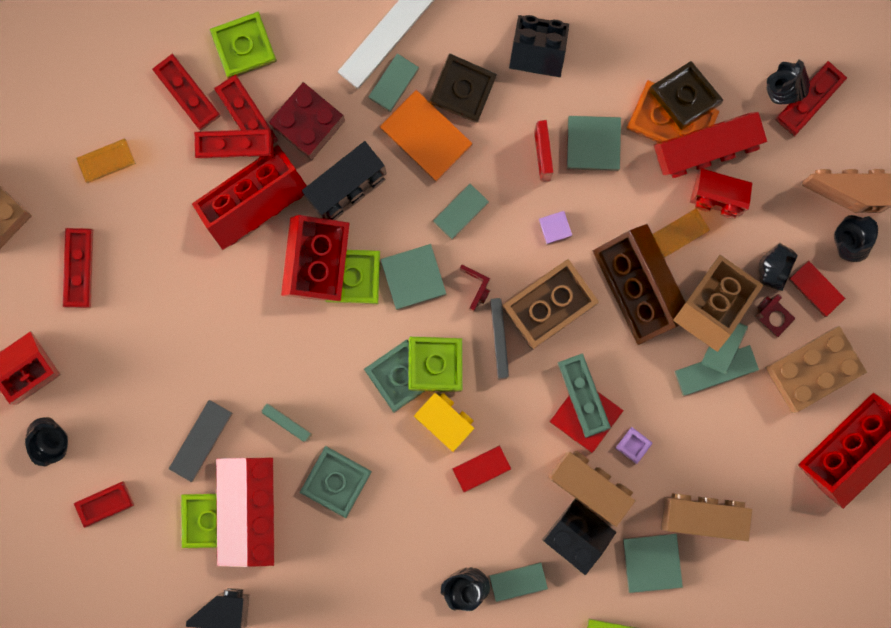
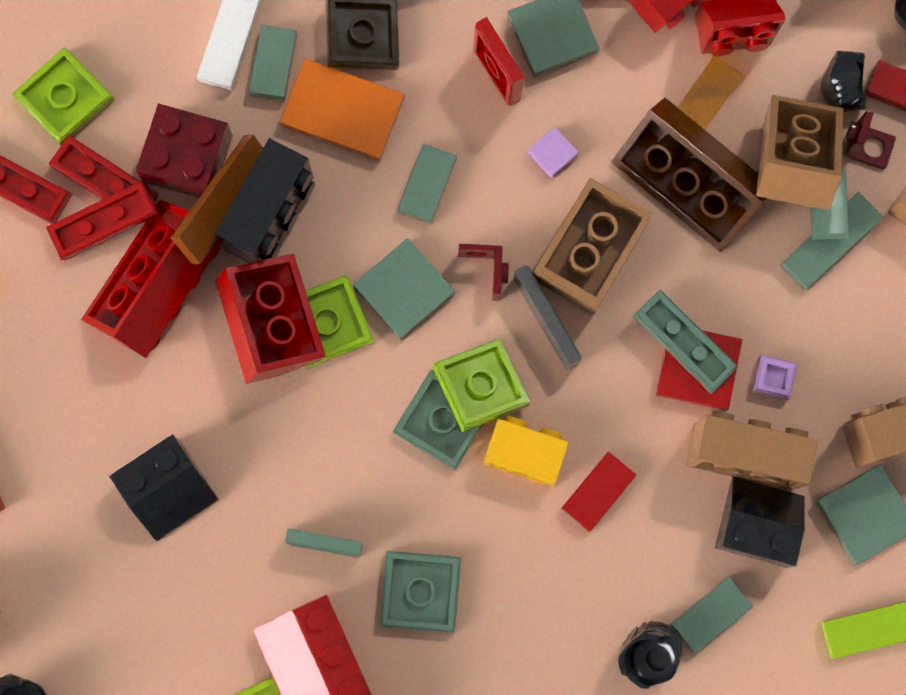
camera: 30 degrees left, 5 degrees down
(199, 340) = (164, 487): none -> black slope
(200, 441) = (222, 617): dark grey tile -> none
(294, 180) = (198, 229): none -> dark orange tile

